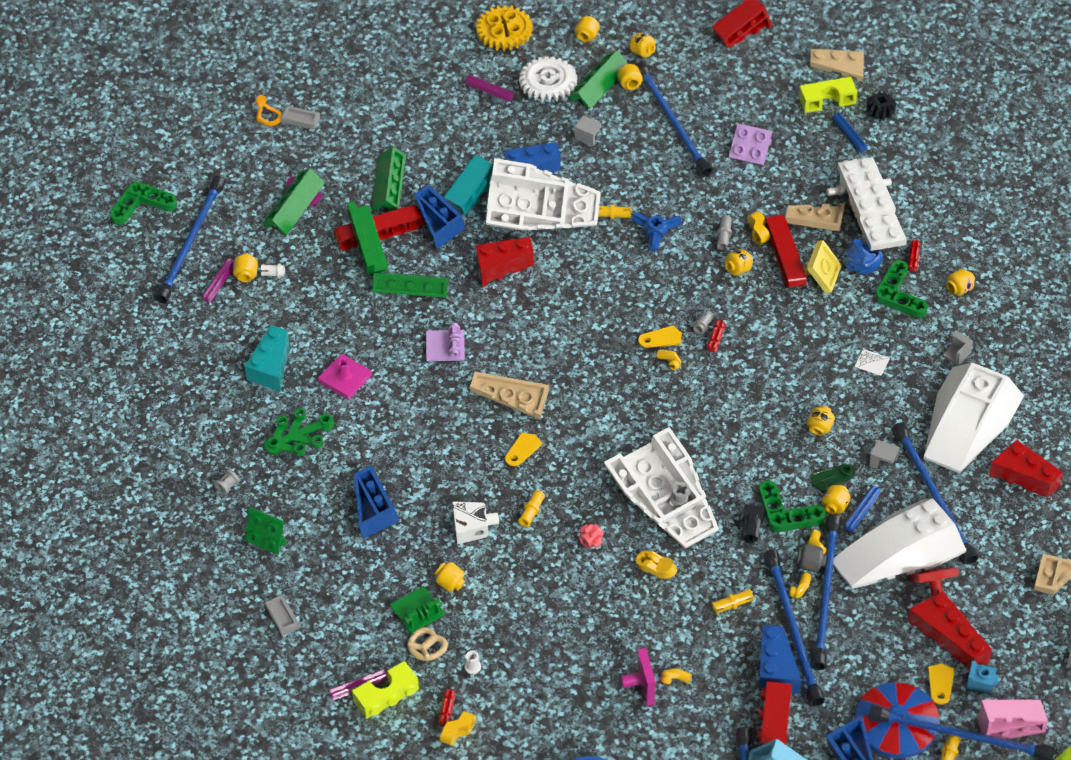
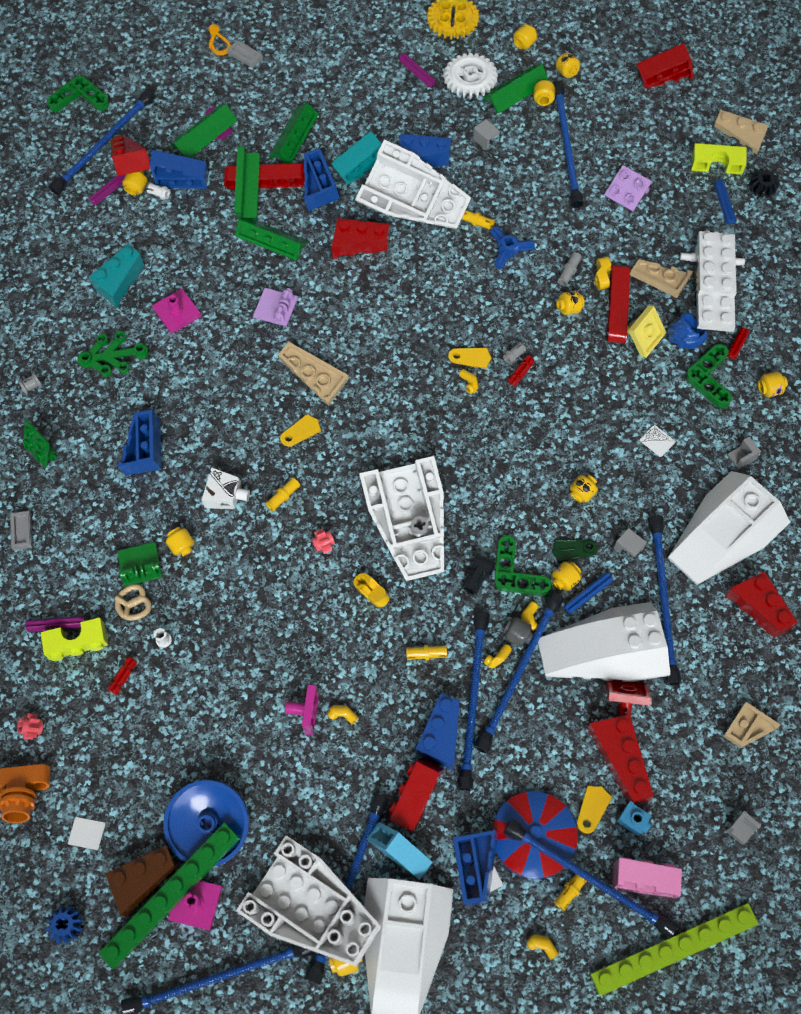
camera: 20 degrees right, 15 degrees up
(232, 242) = (128, 156): none -> red wedge
(288, 245) = (178, 171): none -> blue wedge
(458, 728) = (116, 702): yellow piece -> none

